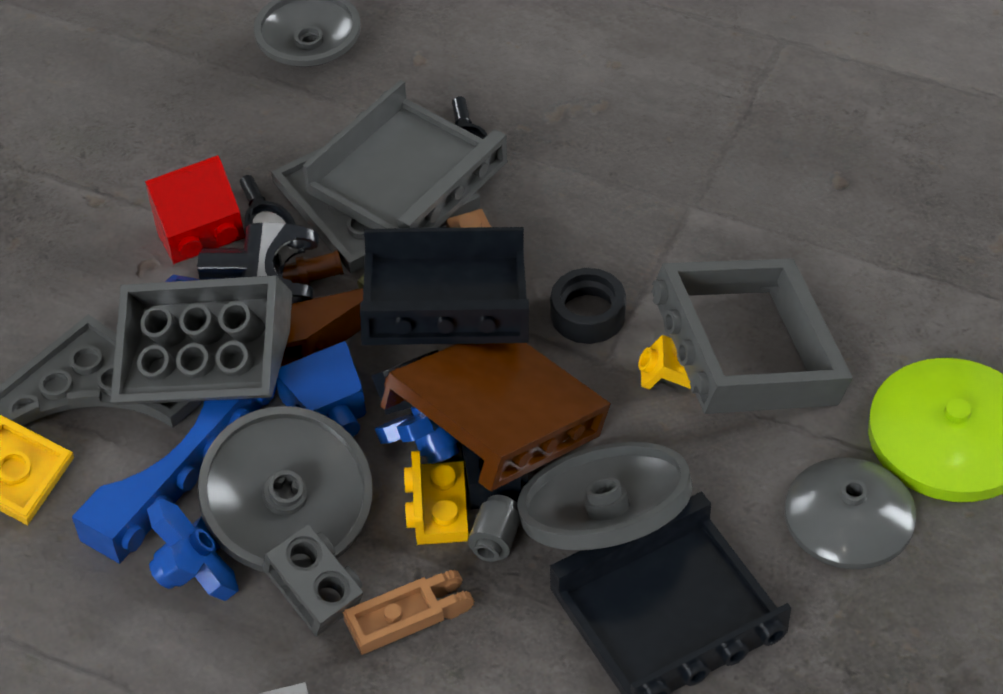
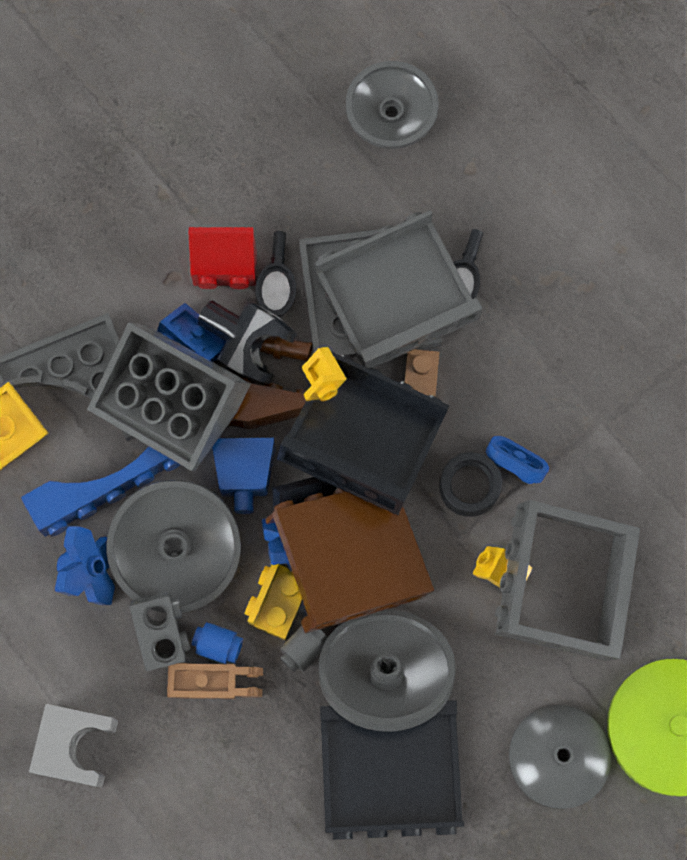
camera: 25 degrees right, 25 degrees up
(369, 248) = (323, 375): none -> yellow bracket
(389, 567) = (217, 643): none -> blue brick
(642, 266) = (517, 459): none -> blue plate

